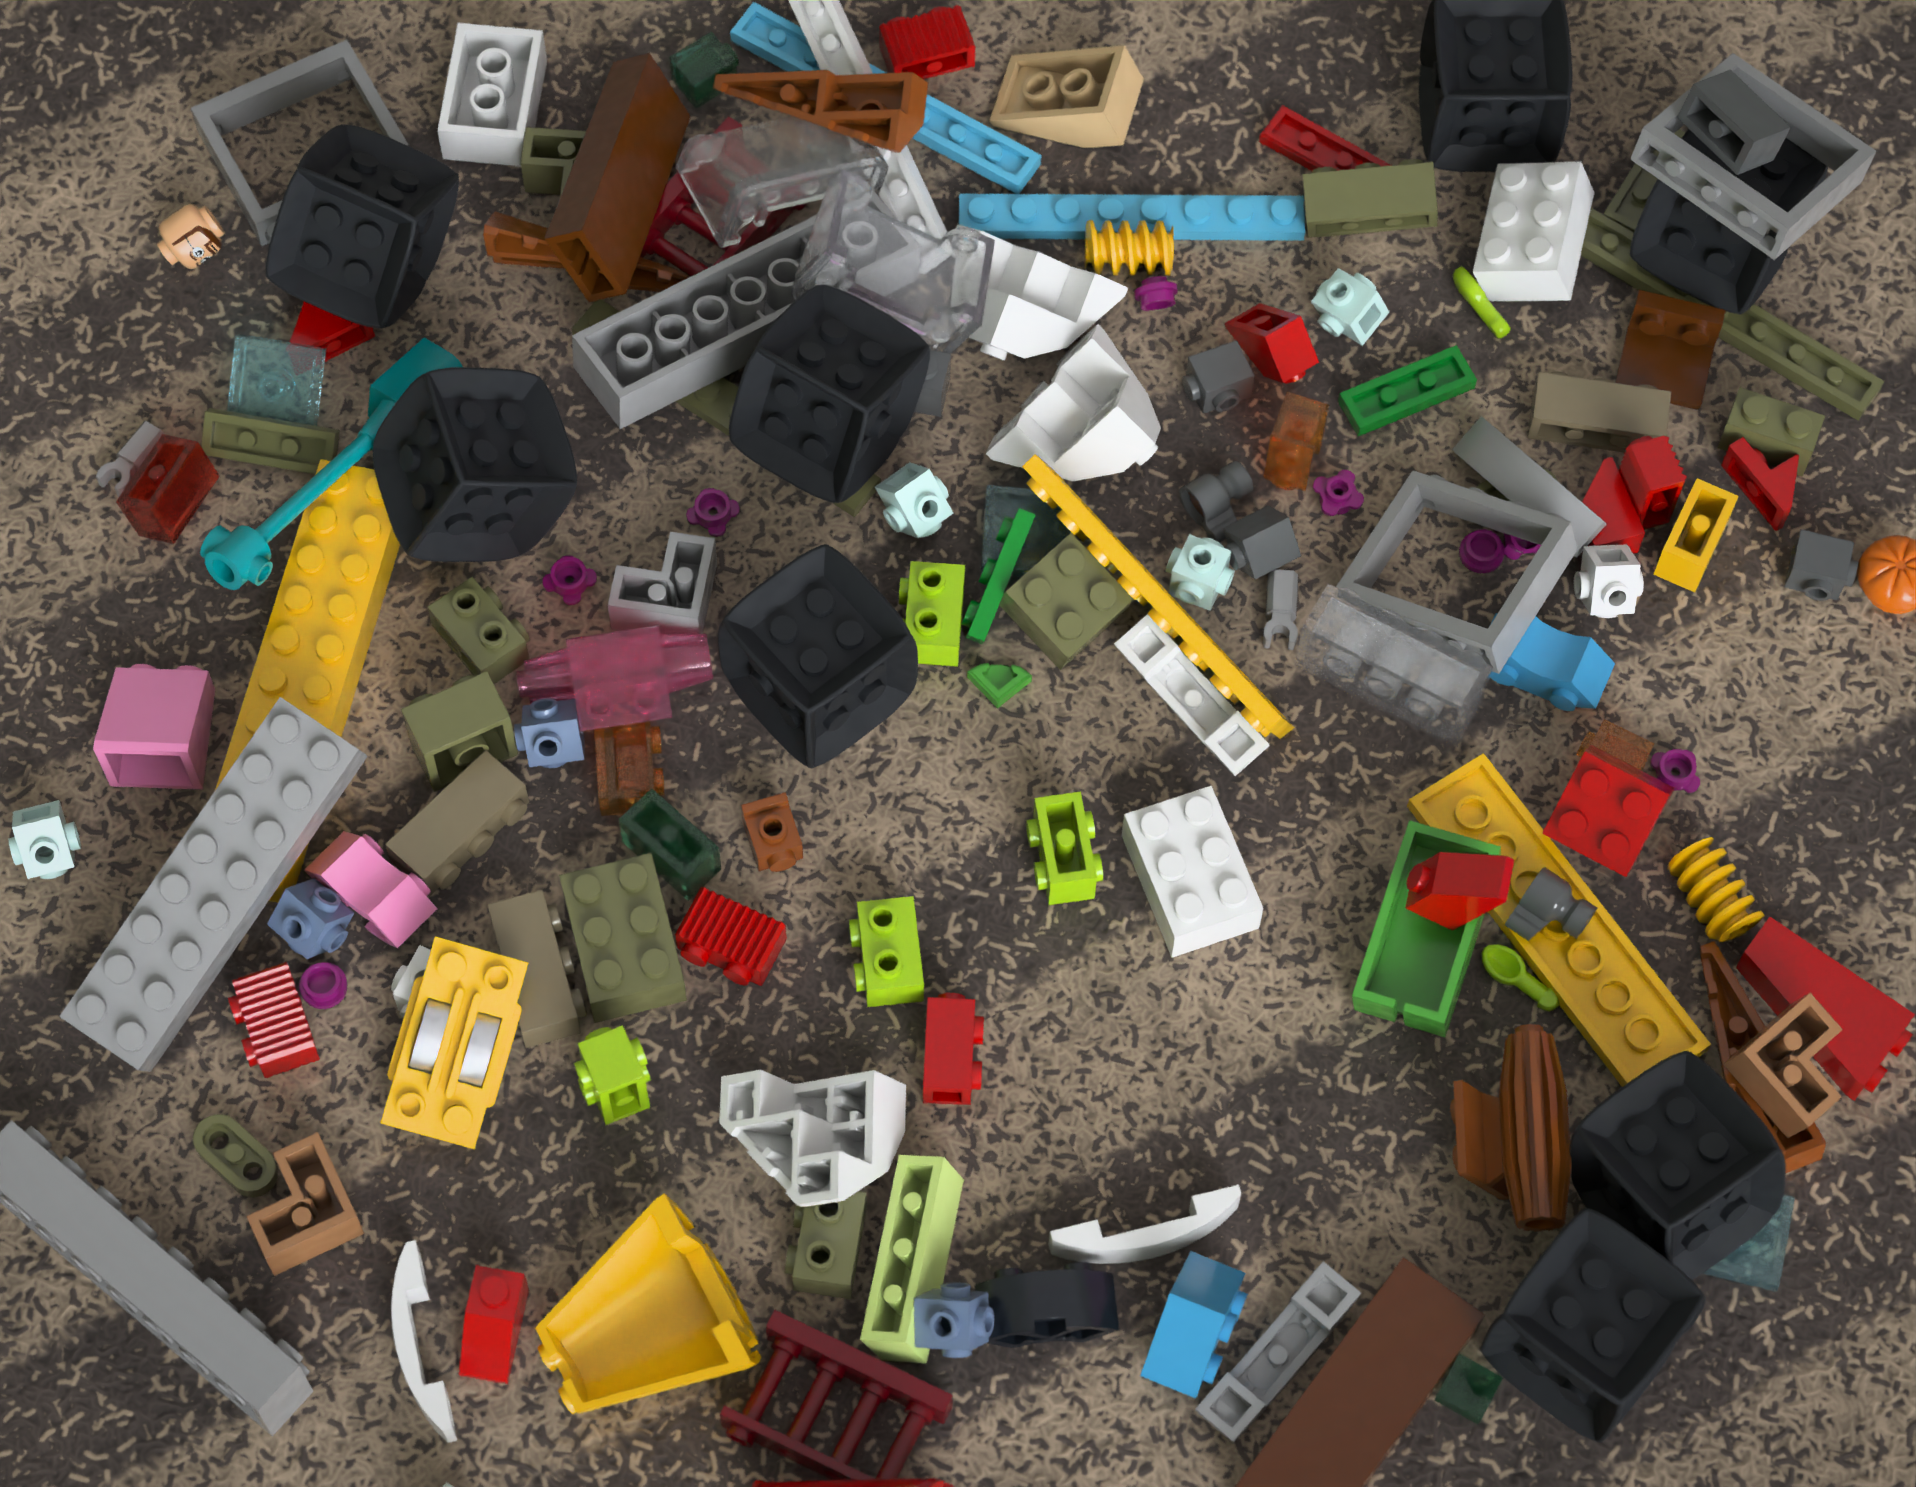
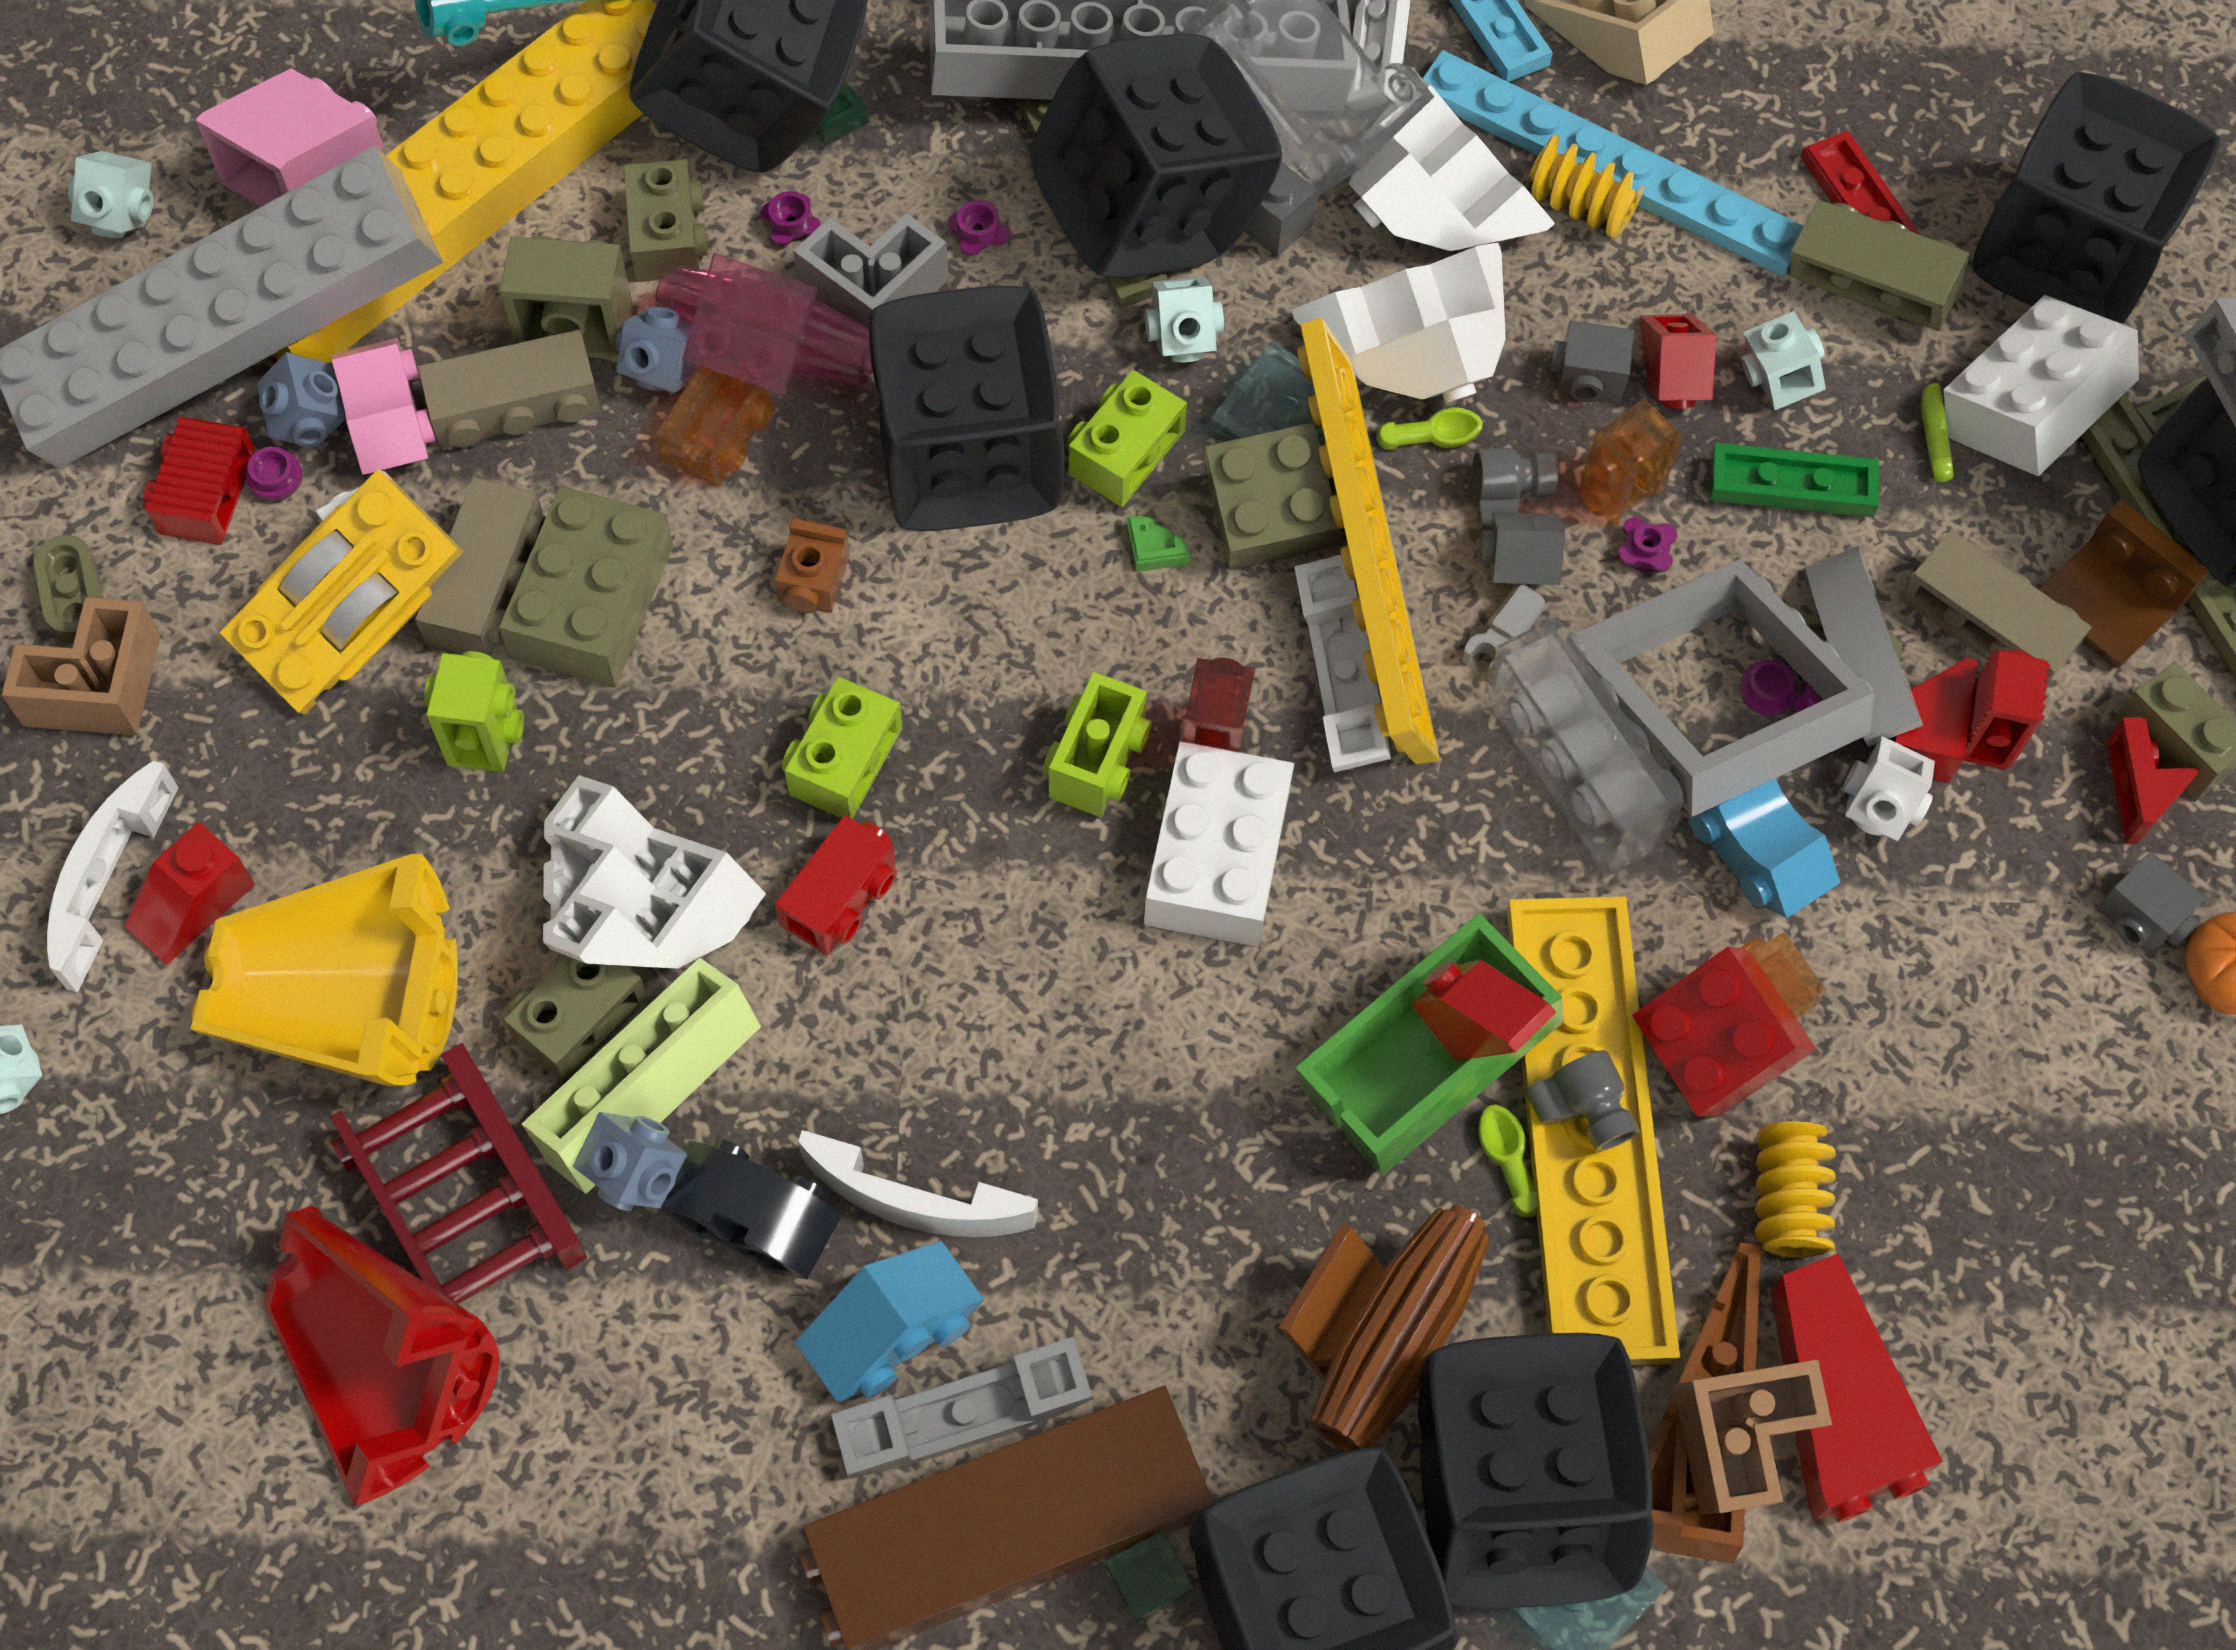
camera: 30 degrees right, 0 degrees up
(678, 848) = (697, 519): clear green brick -> none
(730, 938) = (696, 646): red brick -> none
(997, 575) = (1254, 402): green plate -> none
(1135, 775) = (1219, 704): none -> clear red brick
(1145, 483) = (1445, 429): none -> lime piece
(1156, 293) = (1583, 246): magenta plate -> none
(1200, 571) = (1438, 543): light aqua brick -> none
(1677, 759) = (1847, 1025): magenta plate -> none
(1695, 535) = (2022, 794): yellow brick -> none

